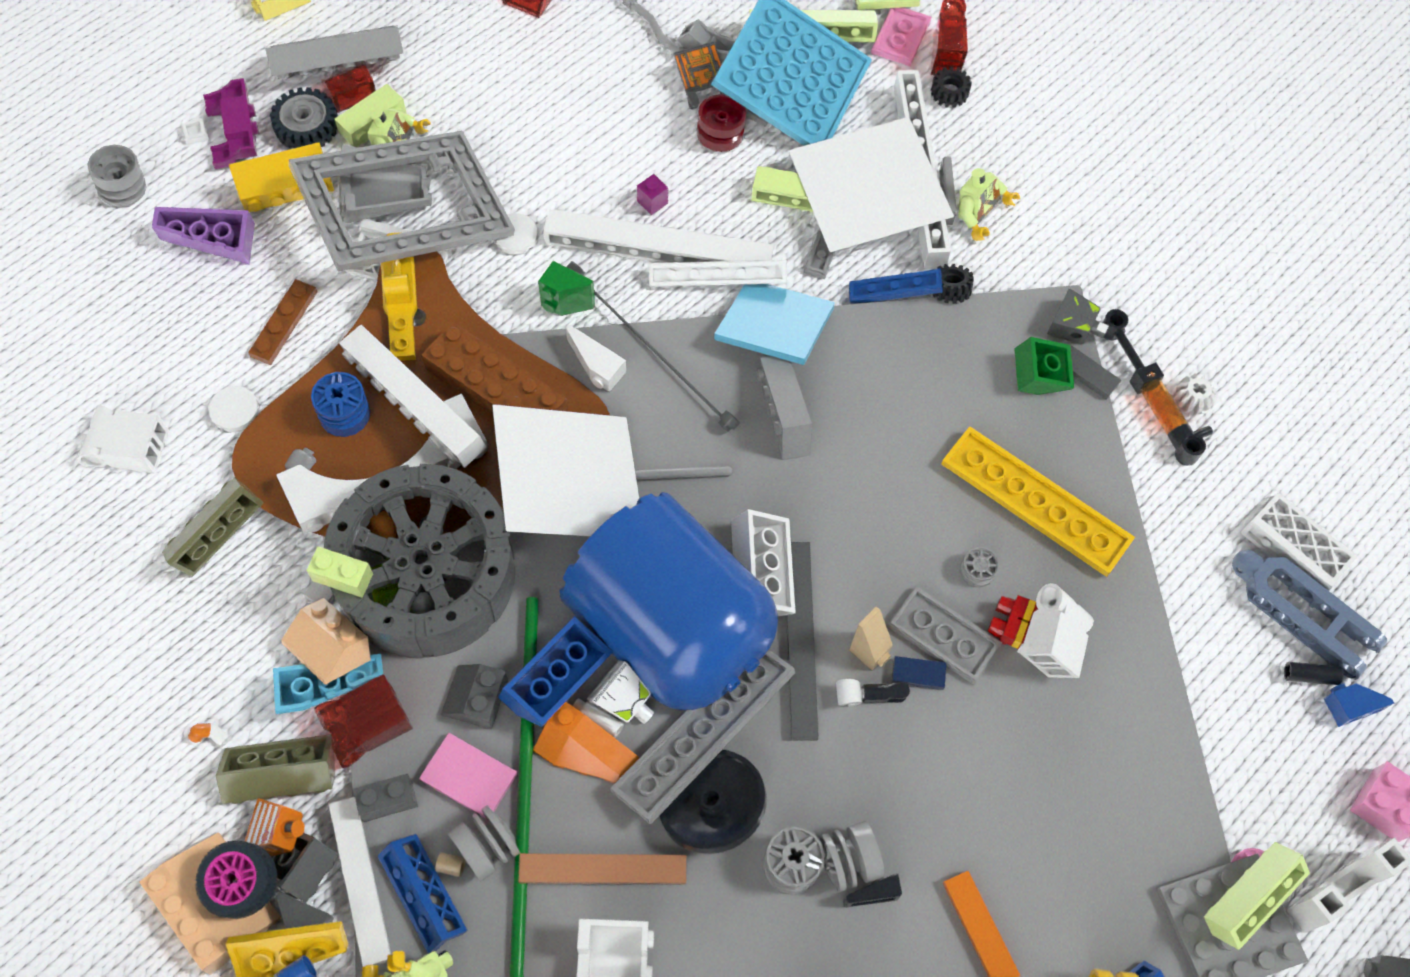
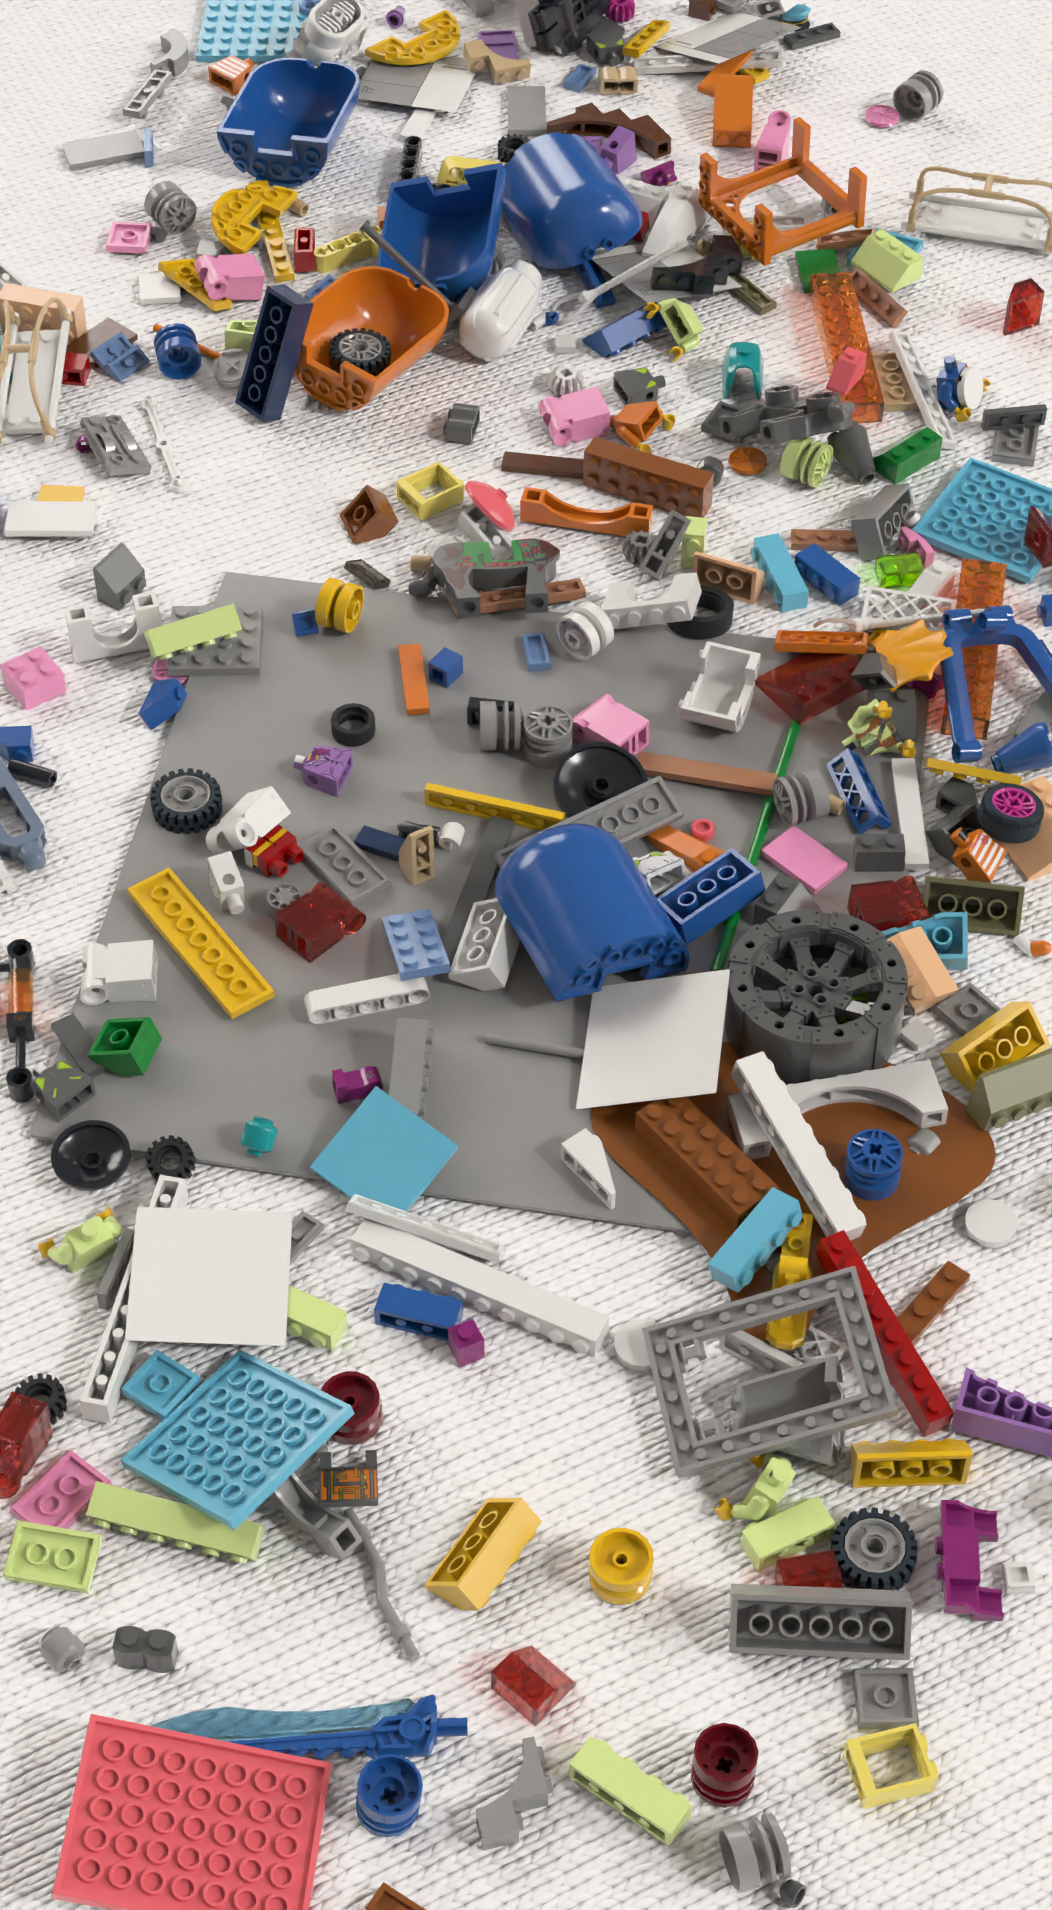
camera: 160 degrees left, 15 degrees down
(241, 590) = (997, 1041): none -> yellow slope
(264, 633) = (965, 1009): none -> light grey tile
(284, 29) = (885, 1698): none -> light grey tile
(316, 268) = (900, 1358): none -> red brick
(339, 572) = (892, 957): yellowish green brick -> none
(433, 311) = (755, 1240): none -> medium azure brick
(487, 62) = (621, 1566): none -> yellow wheel
(565, 290) = (603, 1241): green slope -> none
(587, 788) = (703, 829): none -> coral tile
(590, 56) = (484, 1553): none -> yellow slope
(699, 211) = (417, 1311): none -> blue brick
(727, 420) = (582, 1278): dark grey piece -> none
(730, 901) = (611, 724): none -> bright pink piece
(807, 746) = (487, 806): none -> yellow plate
(829, 388) = (355, 1084): none -> magenta leg
(832, 542) = (415, 944): none -> medium blue plate
(855, 479) = (364, 998): none -> white beam
(868, 112) = (160, 1385): none -> medium azure plate
(888, 312) = (259, 1135): none -> teal head
(895, 286) = (235, 1168): blue tile -> none
(937, 547) = (317, 922): none -> clear red piece
(950, 951) = (445, 667): none -> blue brick
(1017, 751) = (326, 768): none -> medium lavender torso
(1018, 266) = (87, 1144): none -> black dish
(1033, 817) = (353, 712): none -> black tyre
(1043, 561) = (229, 888): none -> white torso
(1089, 442) = (119, 972): none -> white piece
(1126, 681) = (186, 801): none -> wheel
(1237, 806) = (162, 702): none -> blue slope

